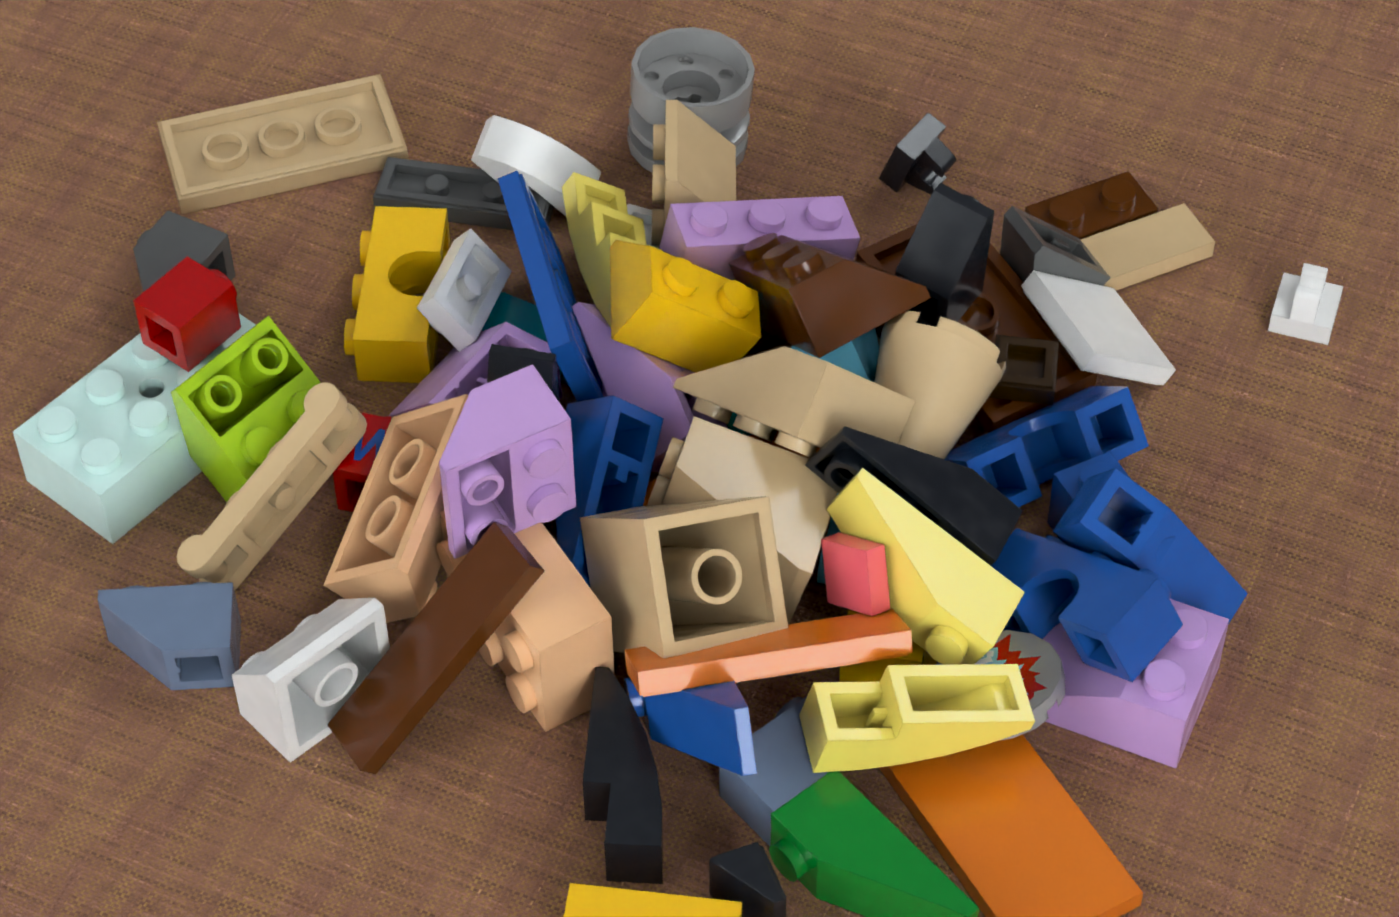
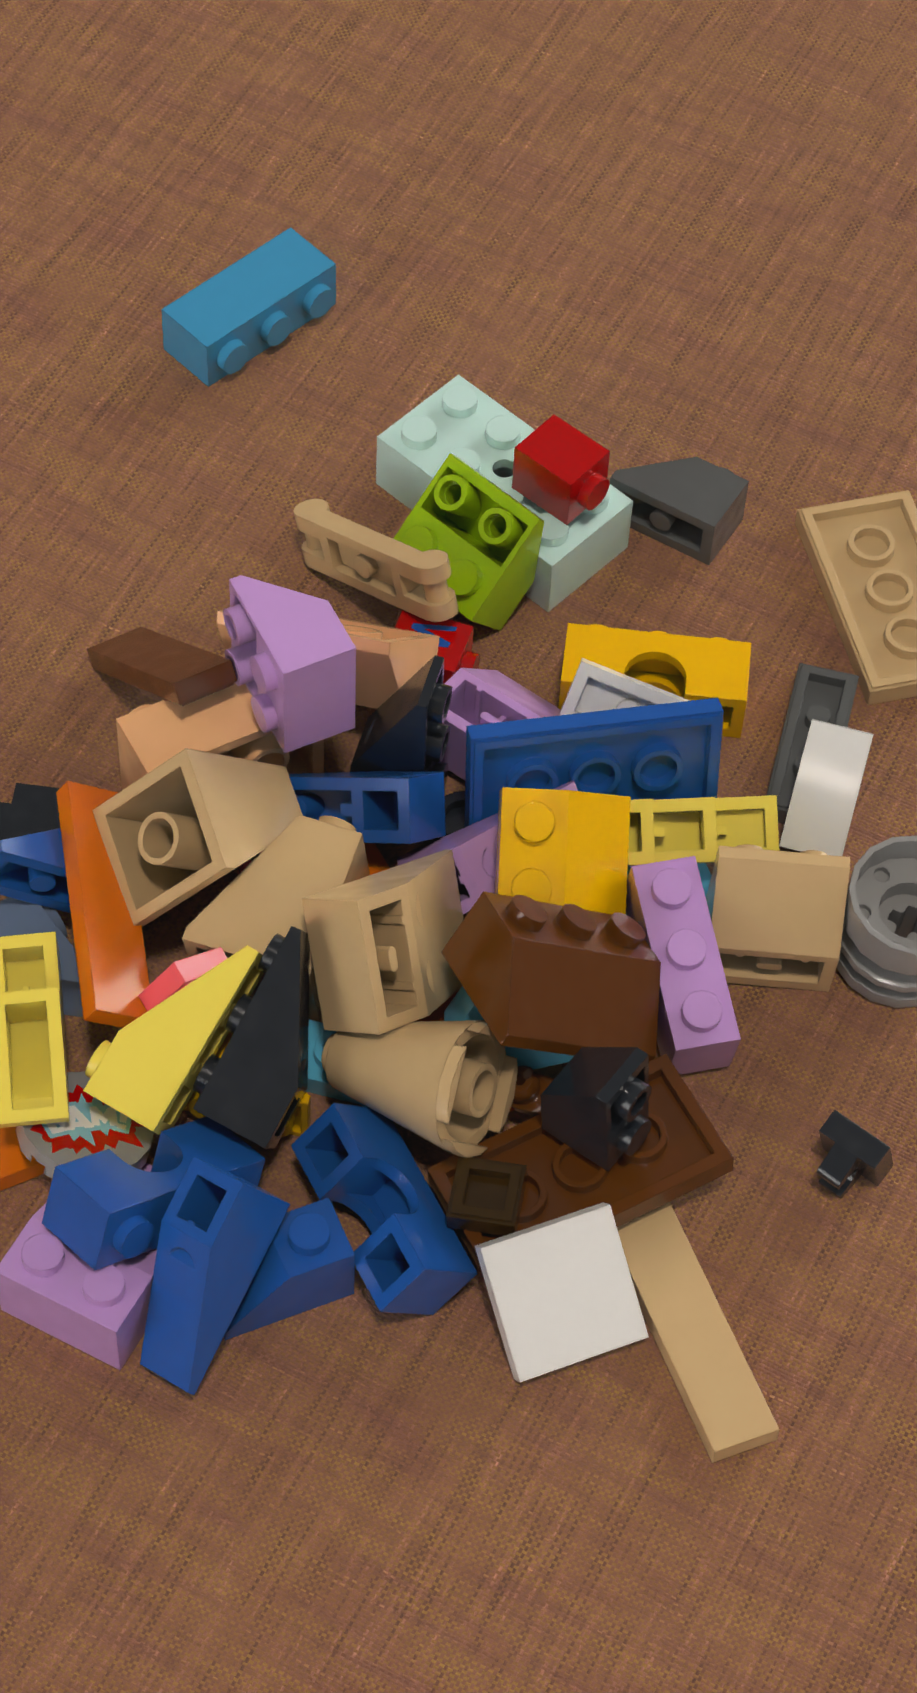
camera: 90 degrees right, 5 degrees up
(177, 632) = (243, 517): sand blue slope -> none
(311, 673) = (166, 588): white slope -> none
(1041, 247) = (661, 1246): dark grey slope -> none
(1096, 206) = (773, 1334): reddish brown plate -> none
(1306, 305) = (614, 1543): white tile -> none

